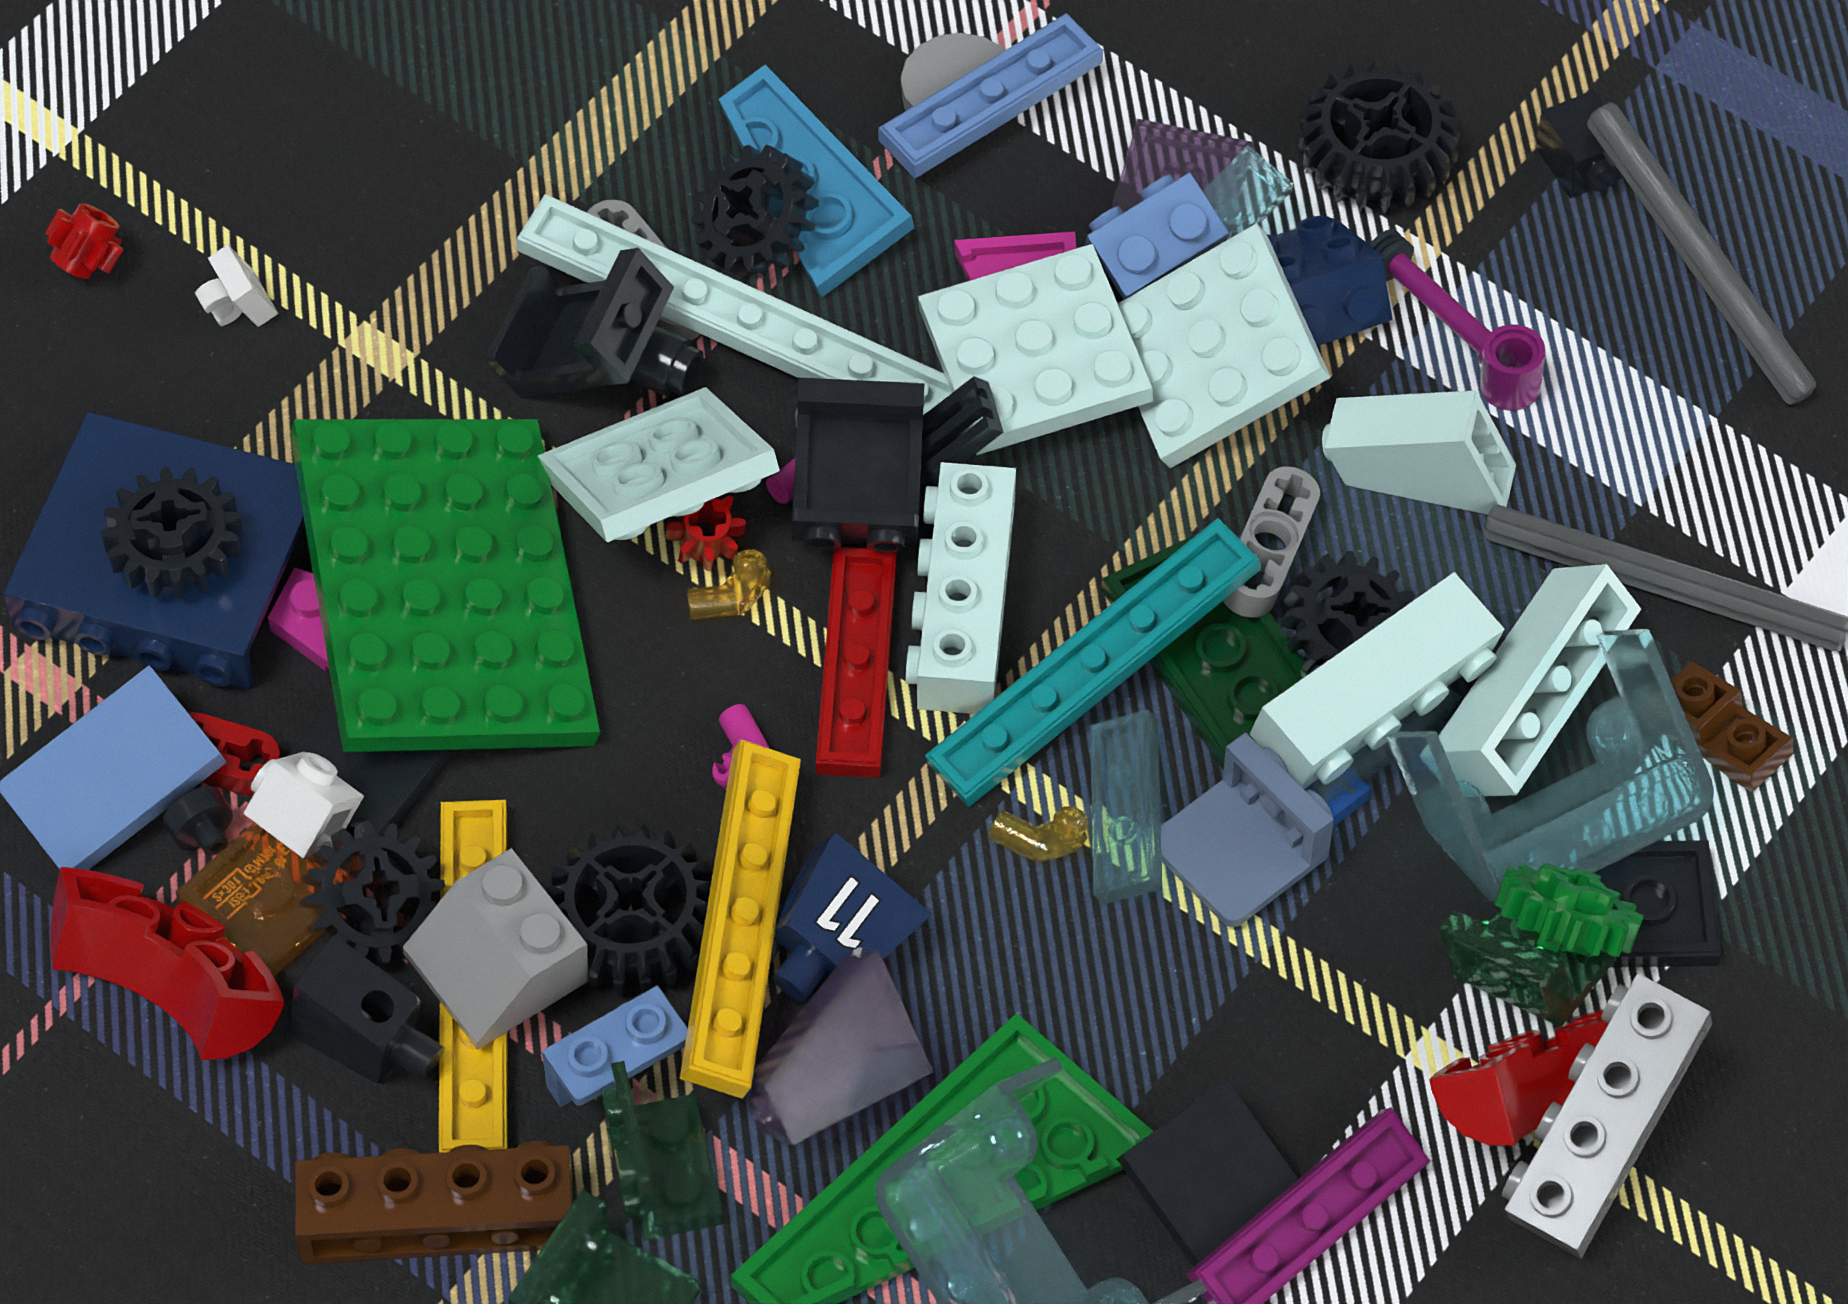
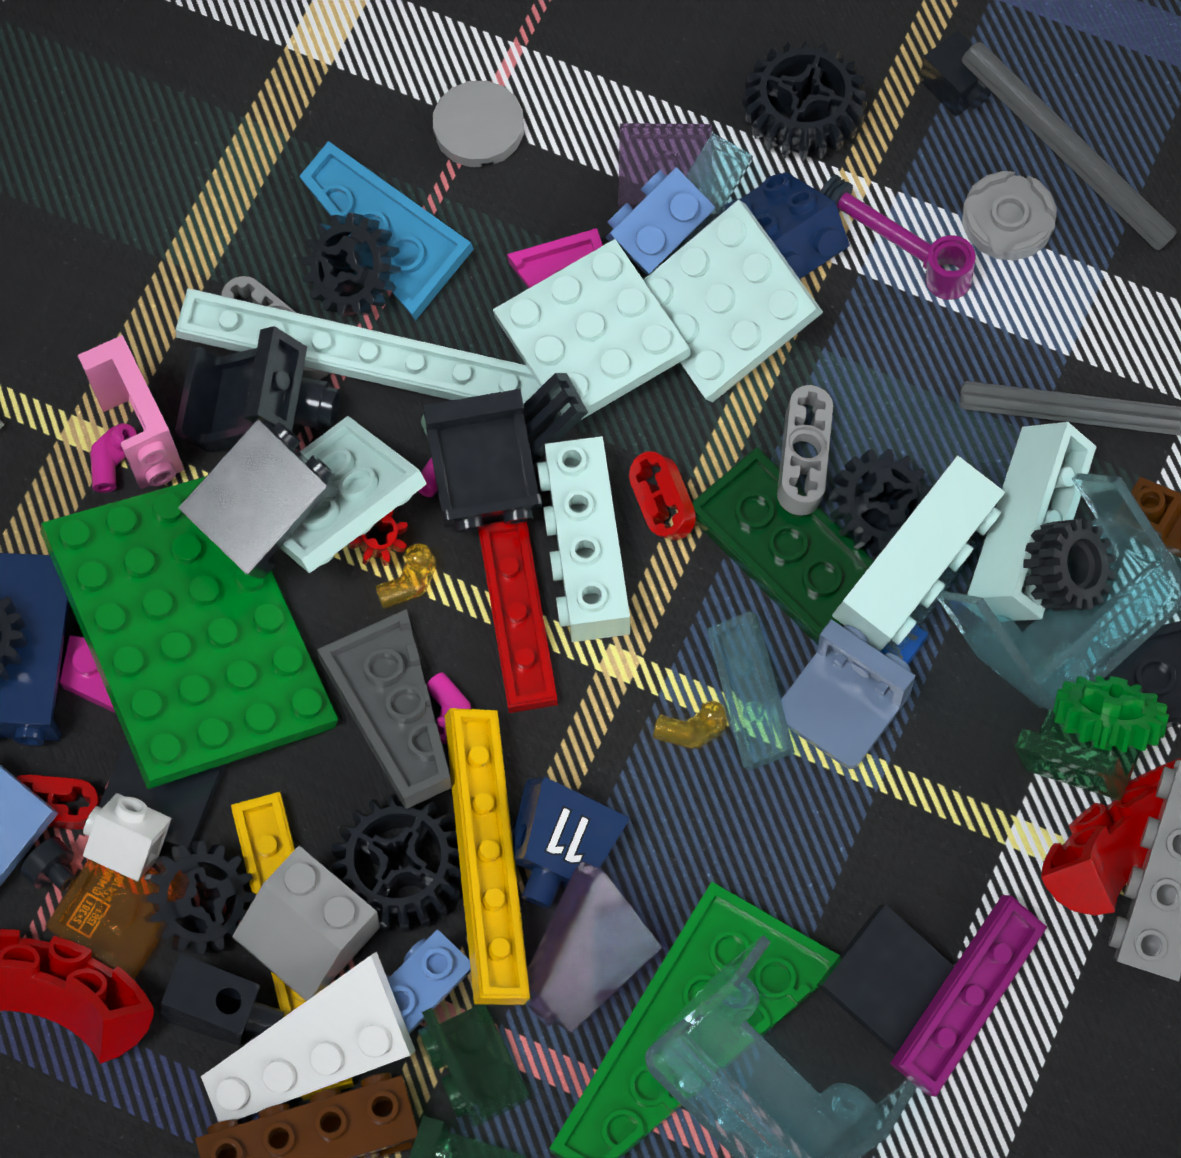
camera: 10 degrees left, 10 degrees up
(397, 371) = (106, 455): none -> dark pink arm
(433, 289) = (118, 380): none -> bright pink panel
(479, 1084) = (322, 1042): none -> white wing
(567, 440) = (259, 496): none -> panel
(668, 721) = (388, 698): none -> dark grey wing
(990, 95) = (505, 129): medium blue tile -> none
(1063, 561) = (654, 498): none -> red beam
(1093, 662) = (698, 580): teal tile -> none
(1421, 448) = (899, 350): light aqua slope -> none
(1593, 733) = (1050, 567): none -> black tyre
(1606, 326) = (1009, 216): none -> light grey tile

